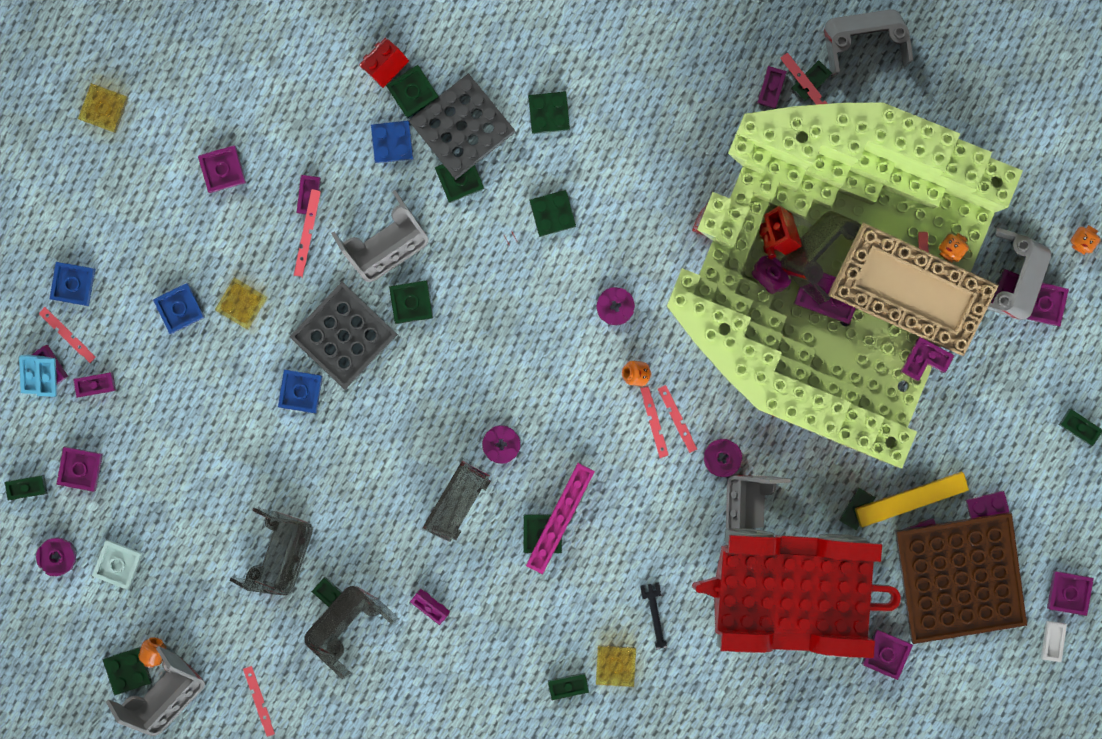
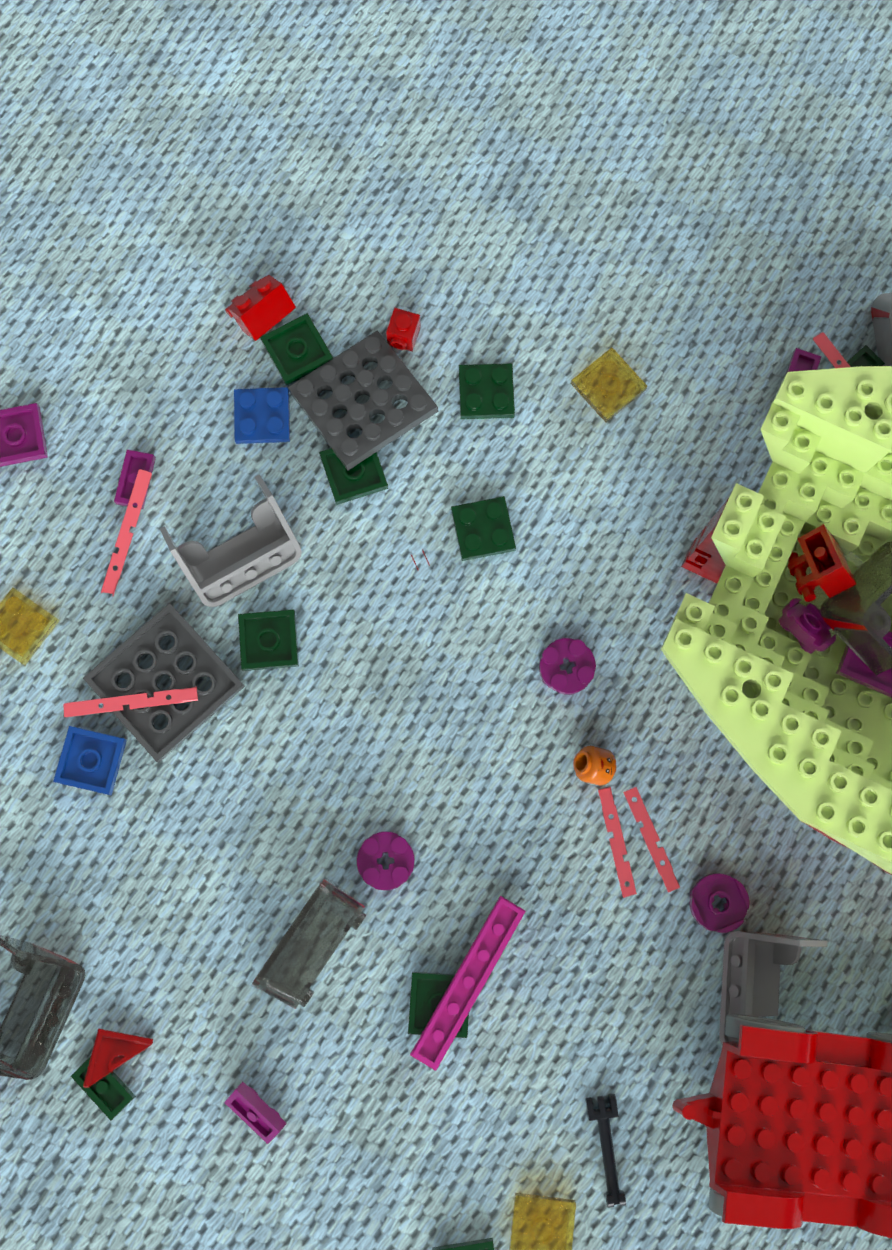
camera: 10 degrees left, 10 degrees down
(324, 633) = (79, 1153): clear smoke windscreen -> none
(326, 350) = (134, 701): none -> coral piece
(335, 575) = (112, 1051): none -> red tile
(486, 73) = (403, 329): none -> red brick
(635, 102) = (608, 385): none -> clear yellow plate

